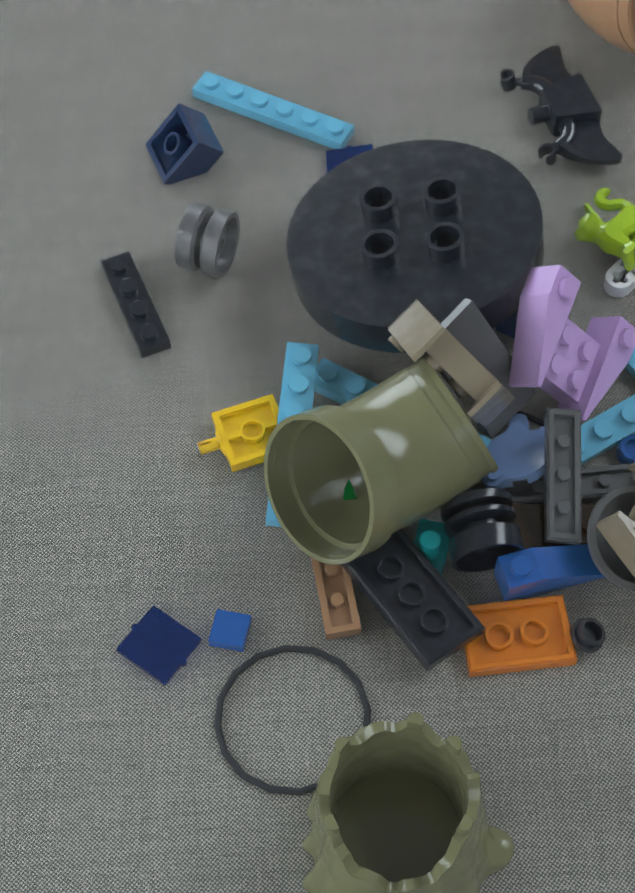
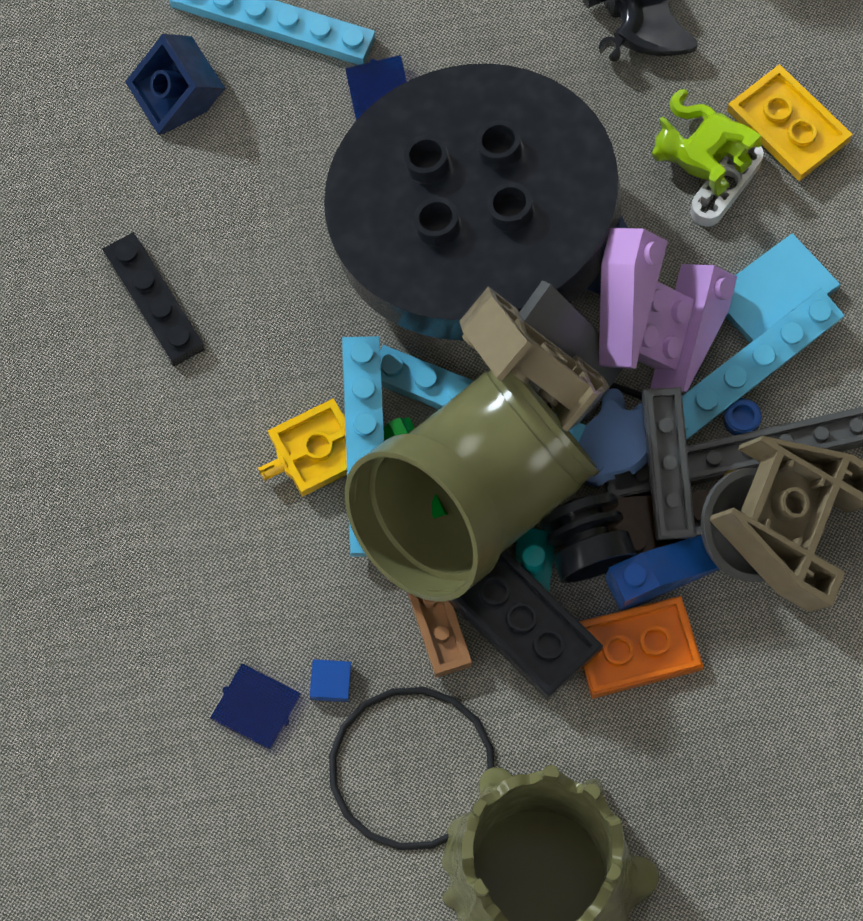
camera: 10 degrees left, 10 degrees up
(207, 240) = (227, 213): flat silver wheel -> none
(587, 634) = (711, 638): black plate -> none

